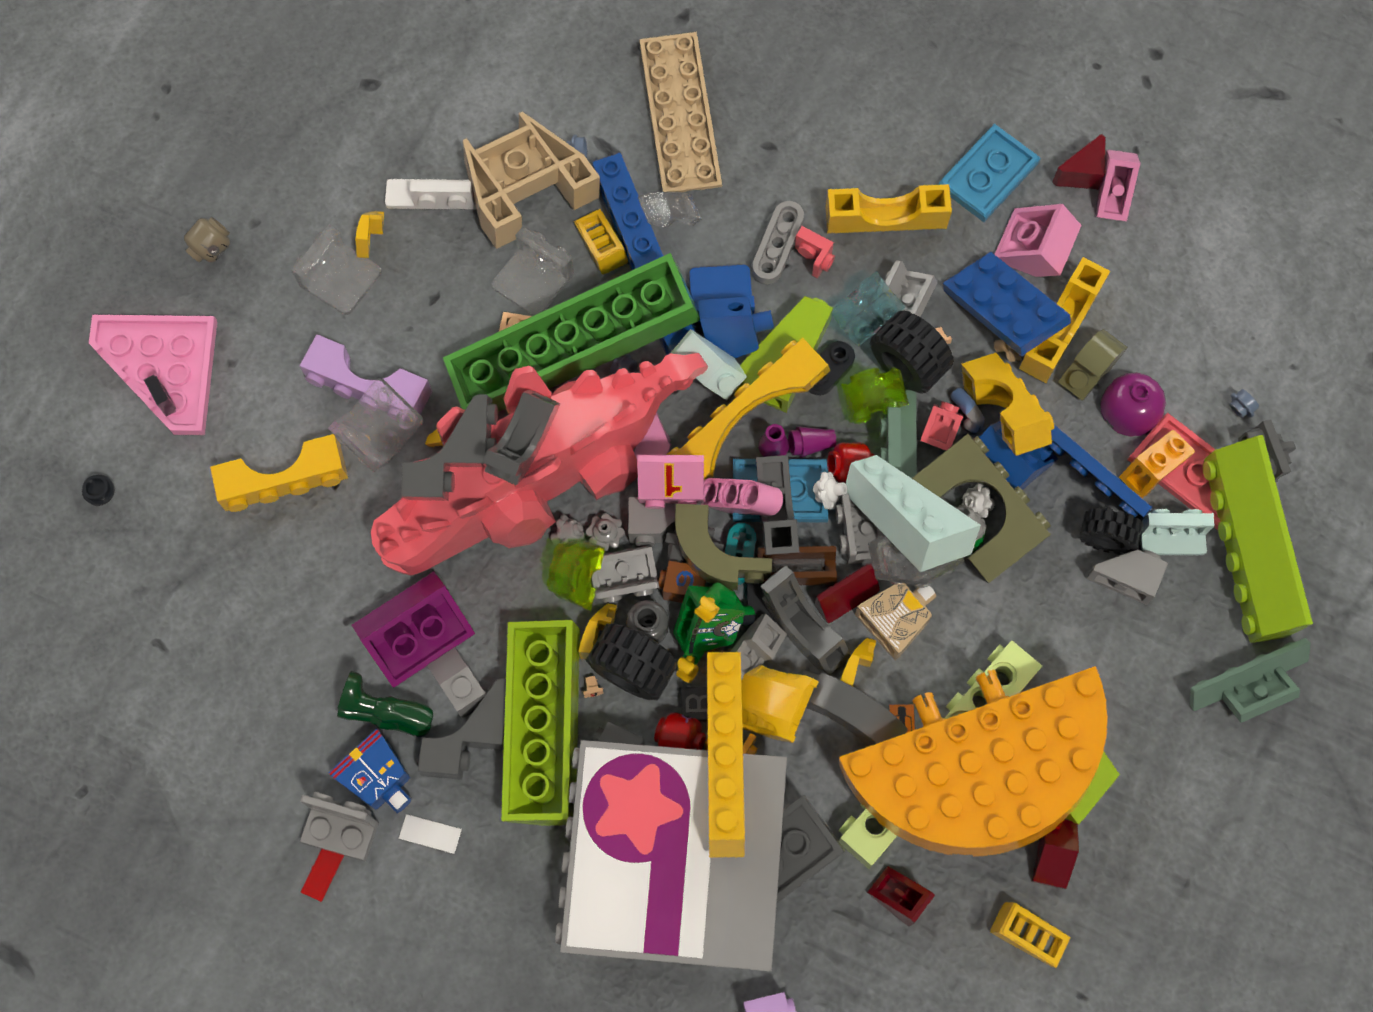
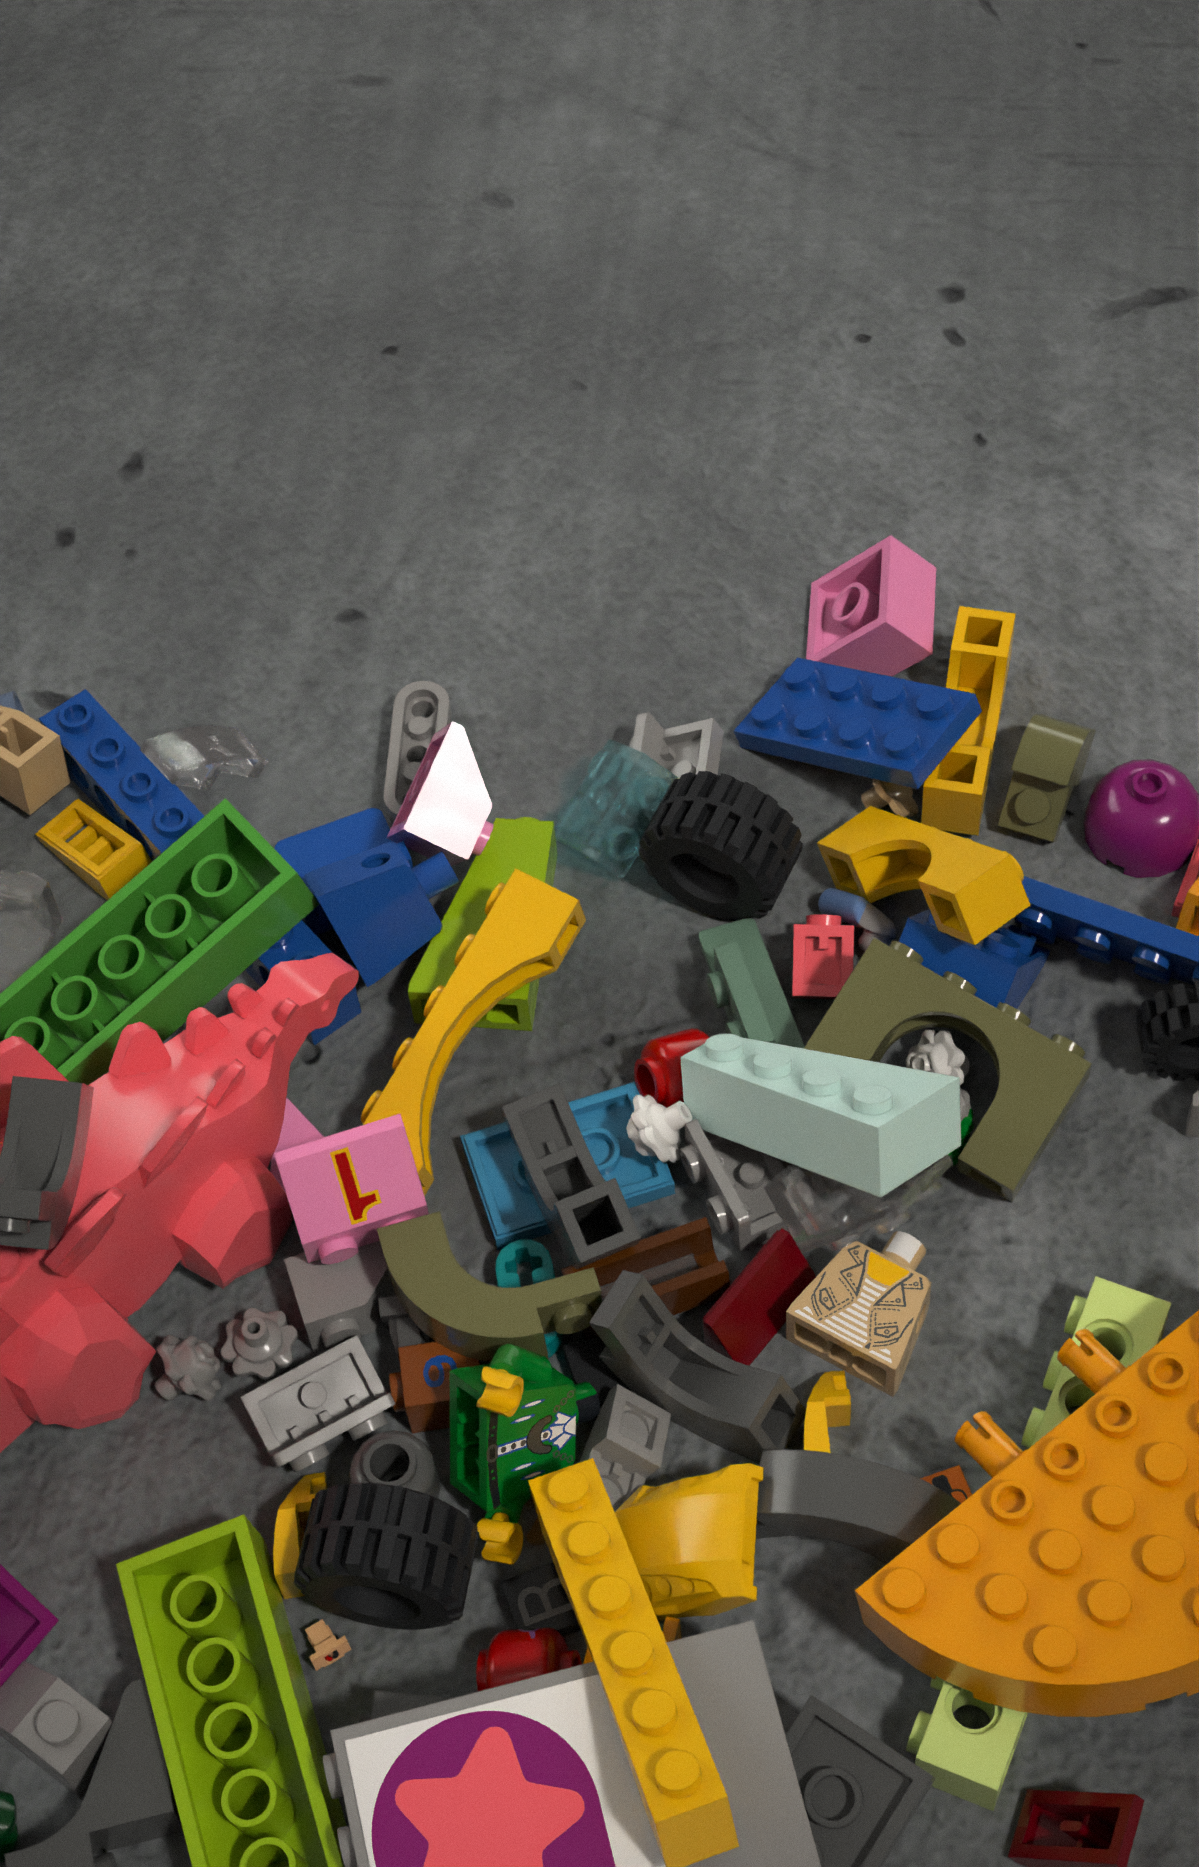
camera: 15 degrees left, 15 degrees down
(572, 571) = (217, 1433): clear neon green cylinder -> none
(680, 113) = (175, 608): tan plate -> none
(723, 370) = (386, 984): light aqua slope -> none
(742, 496) = (500, 1183): bright pink beam -> none
(773, 442) = (523, 1072): magenta cone -> none
(781, 281) = (445, 801): none -> slope
(807, 441) = (591, 1059): magenta cone -> none
(815, 246) = (494, 743): coral bracket -> none
(837, 366) = (597, 932): black plate -> none
(873, 392) = (673, 939): clear neon green cylinder -> none
(919, 210) = (652, 625): yellow arch -> none
(989, 172) = (746, 542): dark azure tile -> none
(1085, 167) = (904, 484): dark red slope -> none
(1117, 185) = (971, 493): bright pink slope -> none

